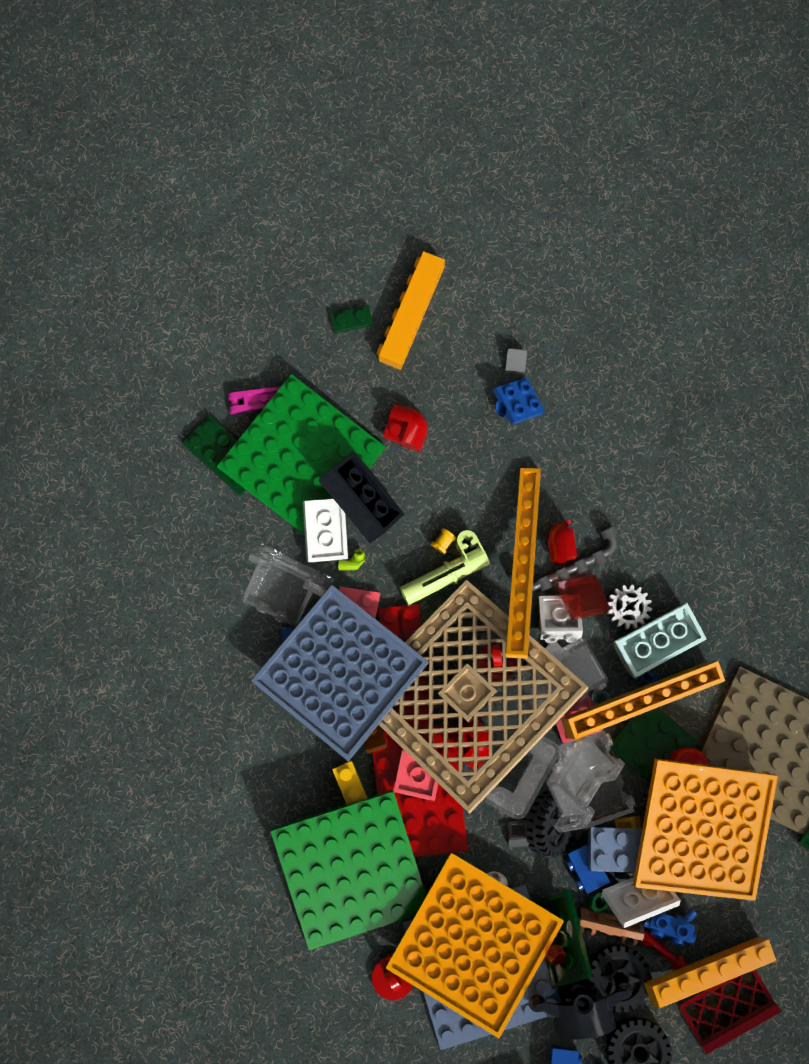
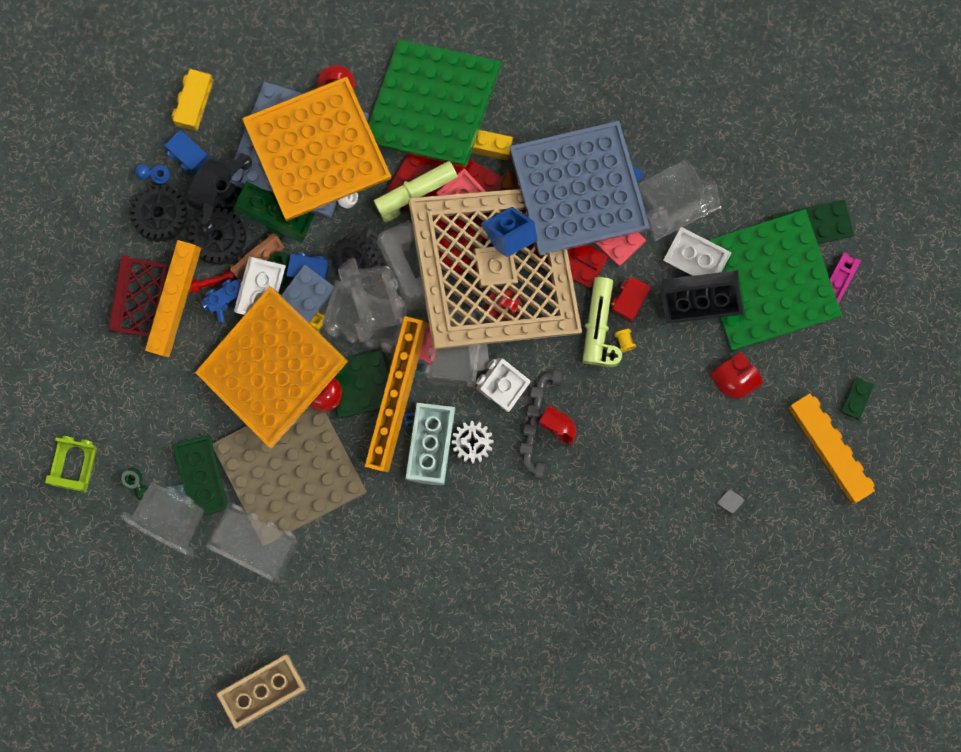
camera: 125 degrees right, 0 degrees up
(355, 561) = (656, 263): lime arm -> none
(404, 561) = (631, 299): none -> red brick
(428, 701) = (510, 231): none -> blue slope
(447, 821) = (389, 204): none -> yellowish green piece
(517, 401) = (695, 477): blue plate -> none
(523, 564) = (564, 381): light orange plate -> none
(555, 955) = (267, 196): clear red plate -> none
(583, 597) = (505, 411): clear red tile -> none

